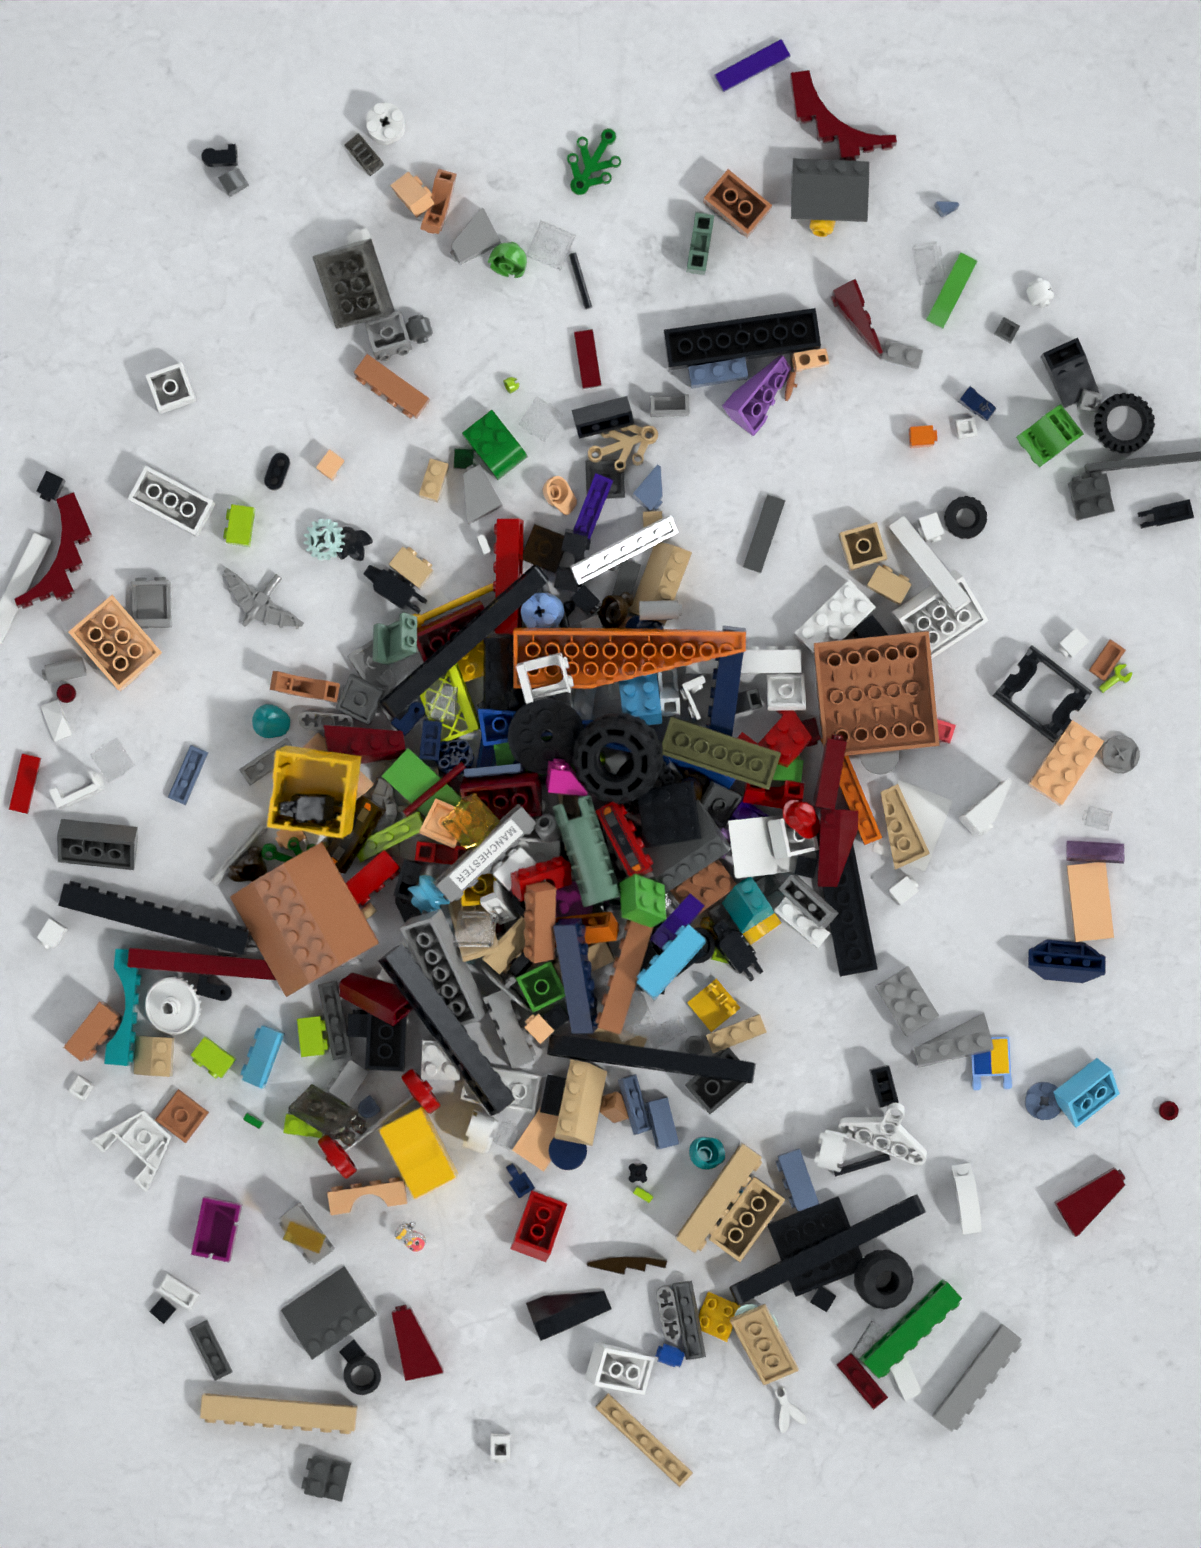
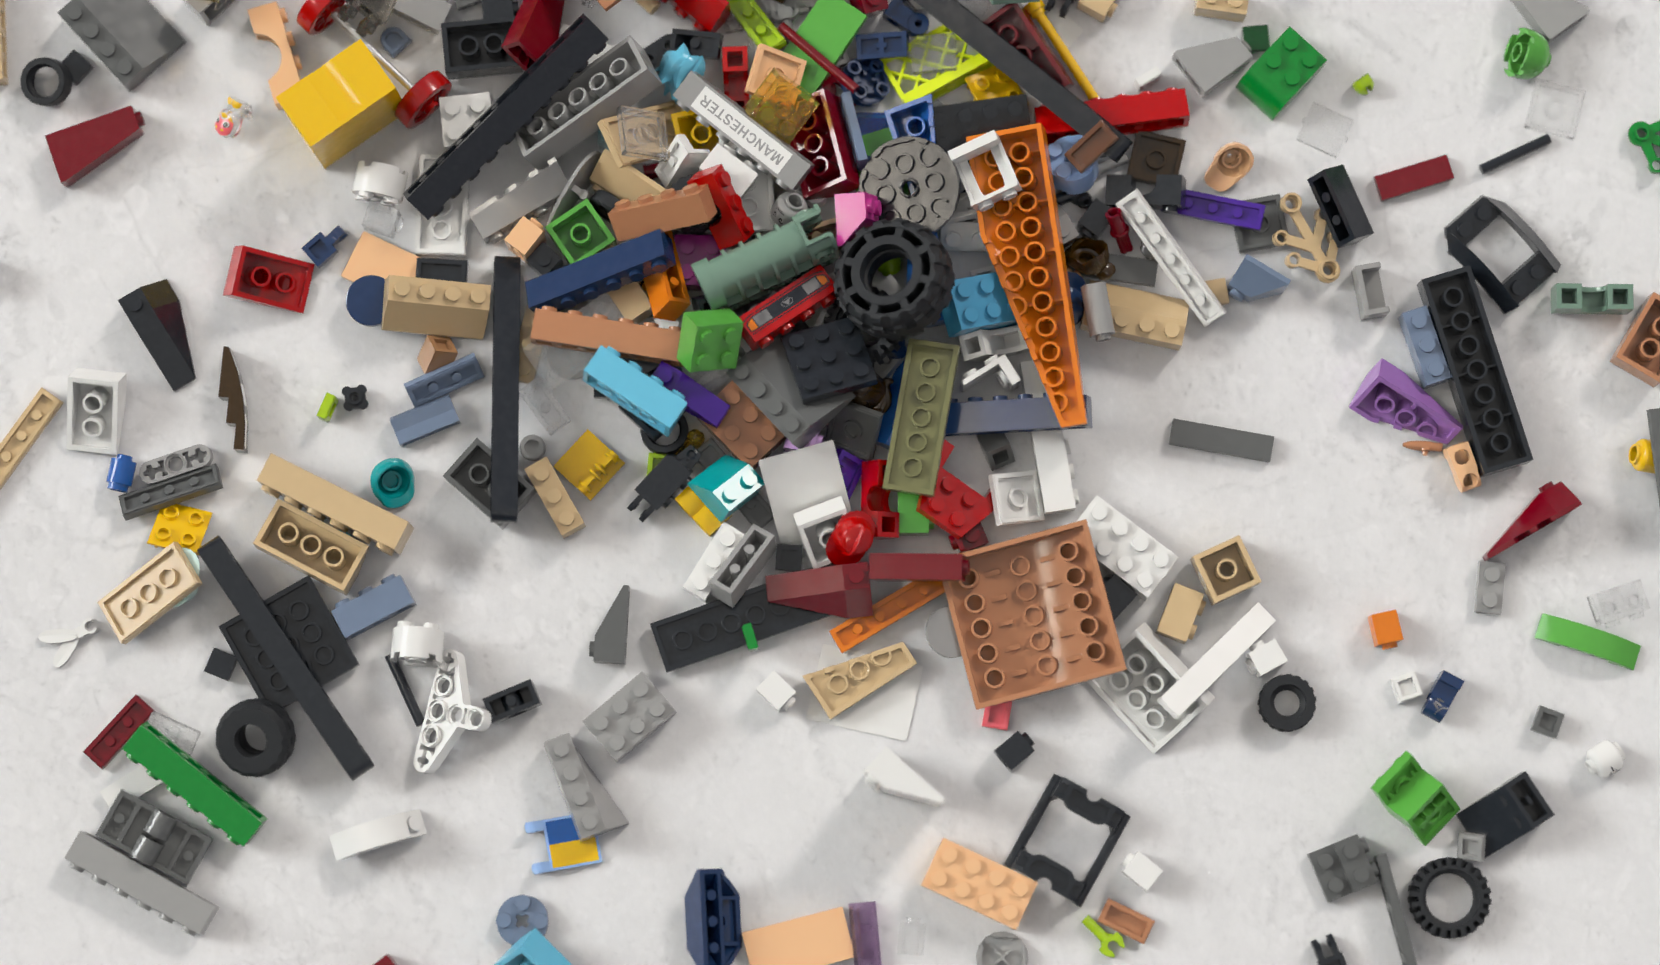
camera: 85 degrees right, 5 degrees down
(536, 595) = (1091, 146): none -> reddish brown tile
(597, 584) = (1119, 229): none -> dark red axle
(676, 290) = (1525, 278): none -> black wedge
(845, 1006) = (611, 637): none -> dark grey slope
(862, 903) = (750, 637): none -> green tile
(944, 1364) = (154, 836): none -> dark grey plate
(971, 721) = (1015, 750): none -> black brick

